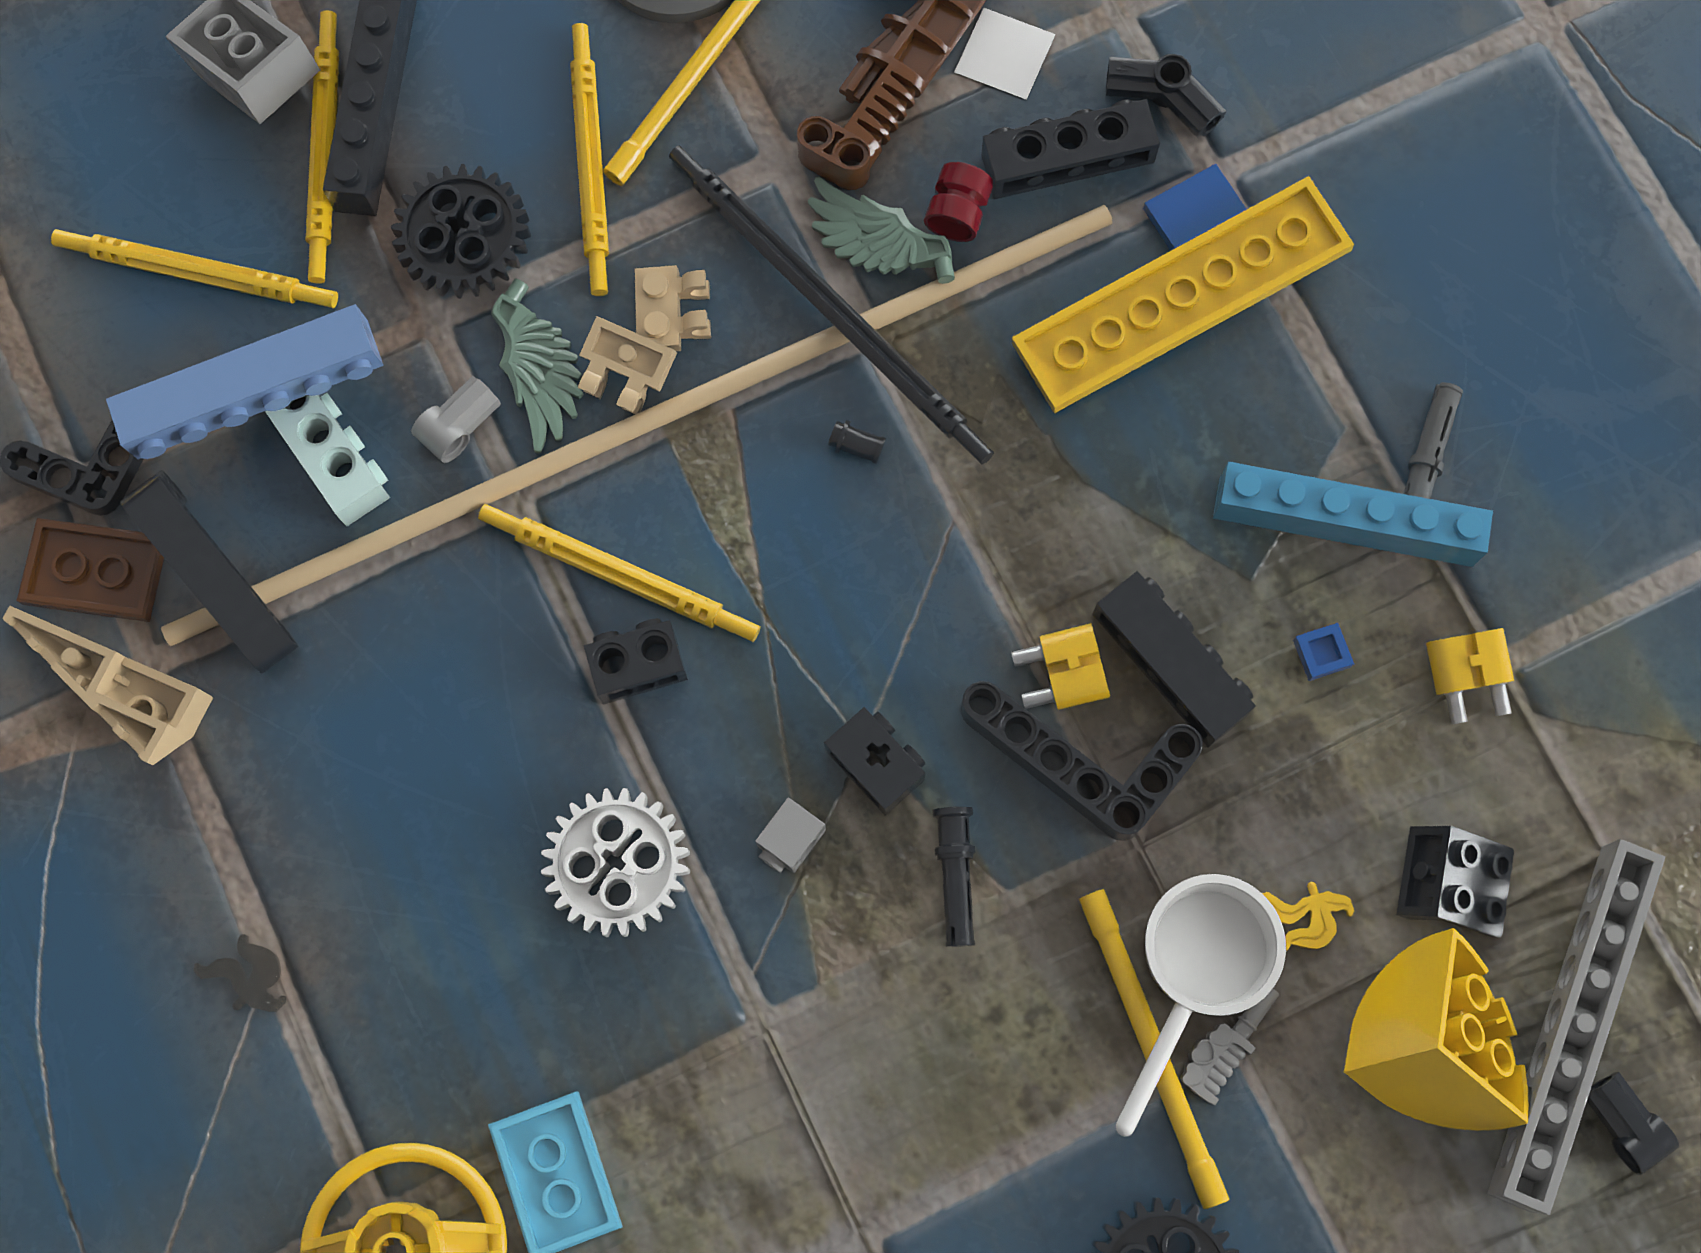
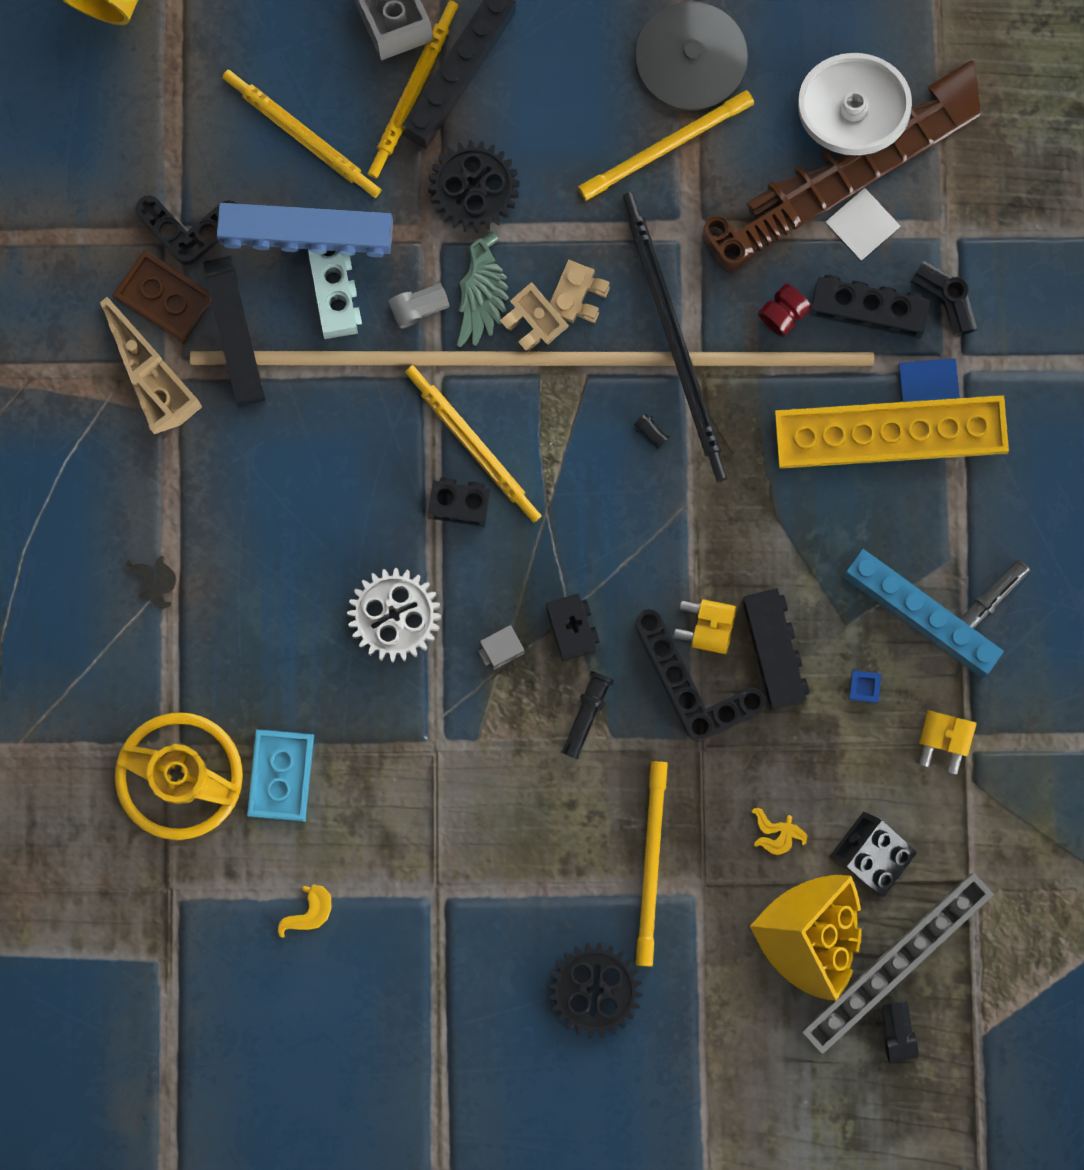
camera: 15 degrees right, 5 degrees up
(589, 160) = (573, 174): yellow axle -> none
(877, 235) = (725, 307): sand green animal -> none
(1212, 952) = (710, 825): white piece -> none
(1217, 1054) = (688, 885): light grey piece -> none

